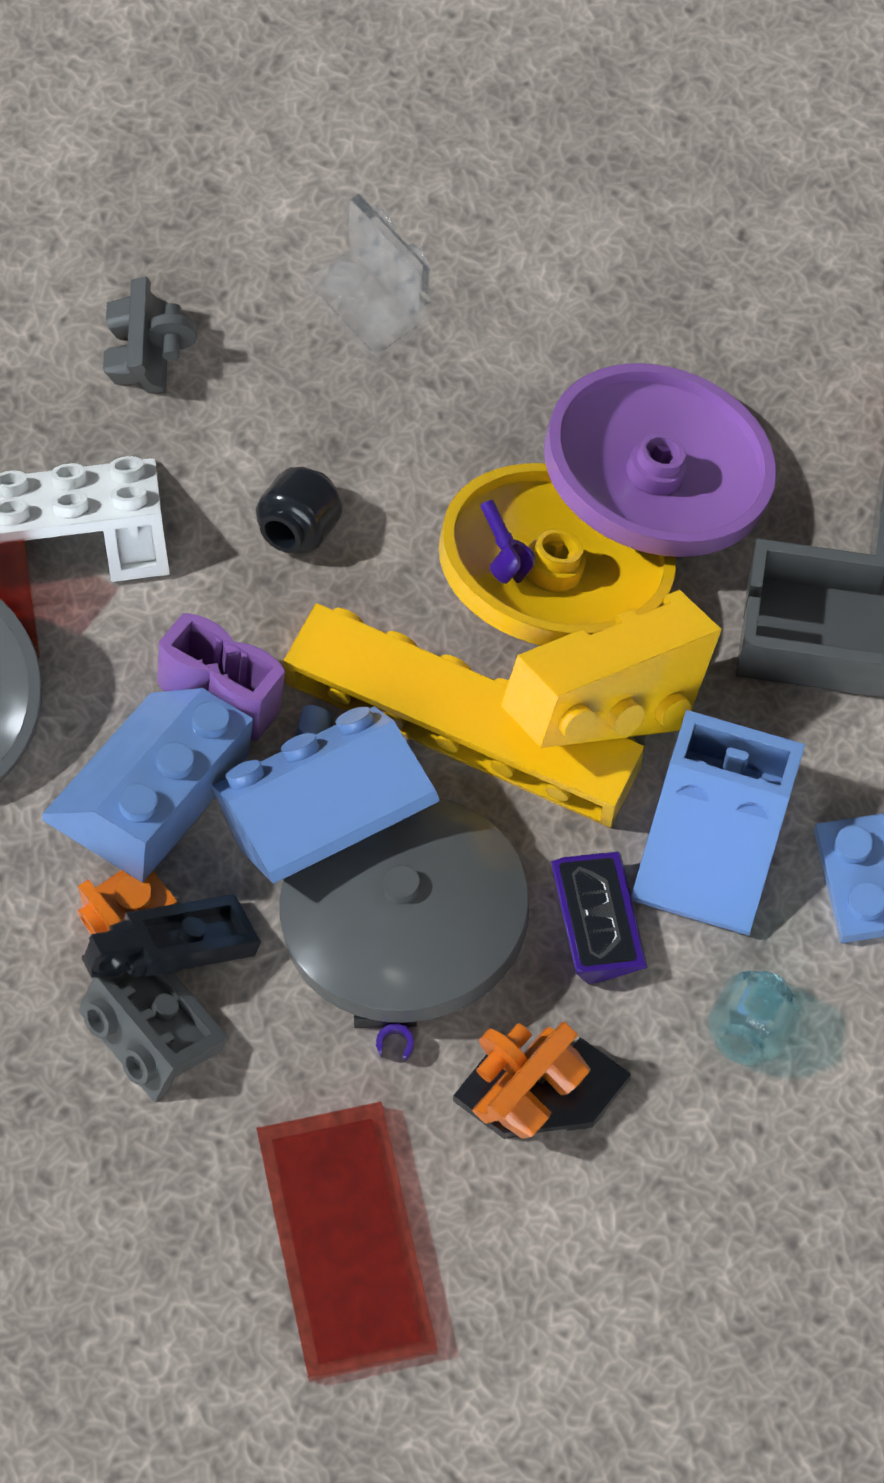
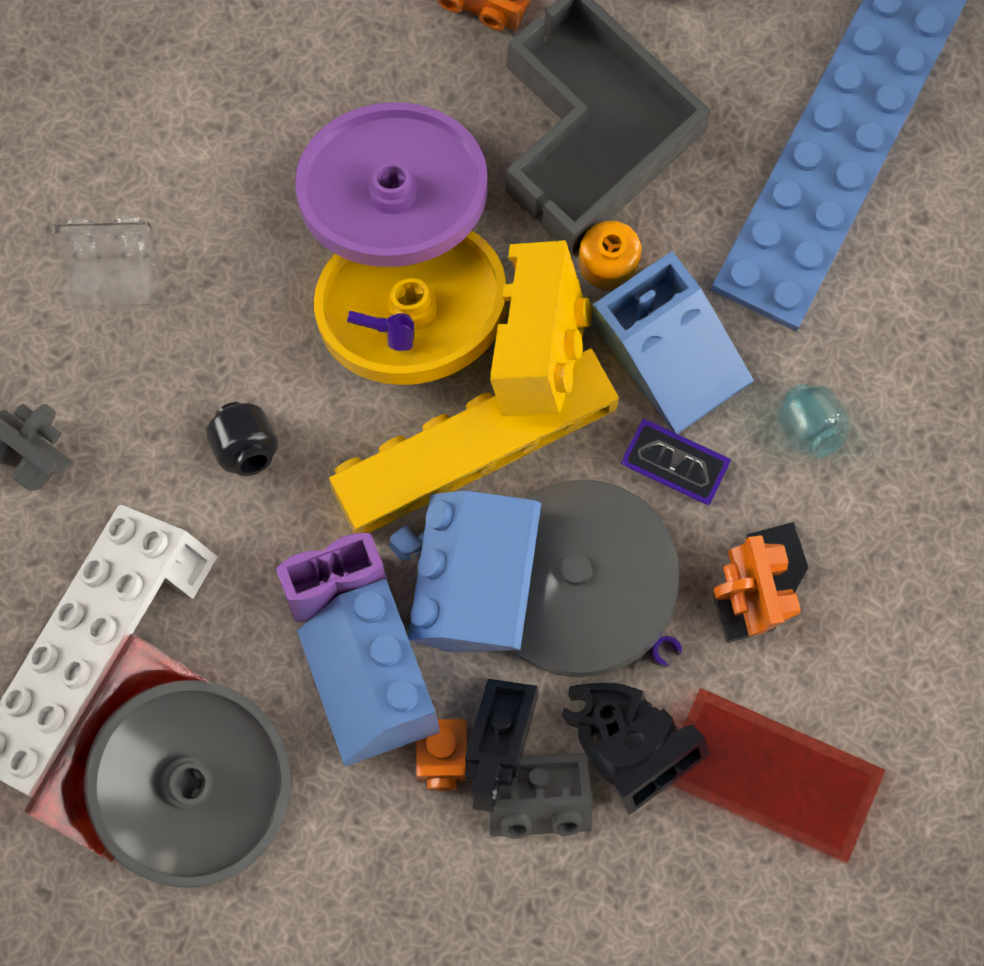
camera: 55 degrees left, 10 degrees up
(269, 1073) = (639, 743): none -> black piece
(761, 697) = (597, 261): none -> light orange head

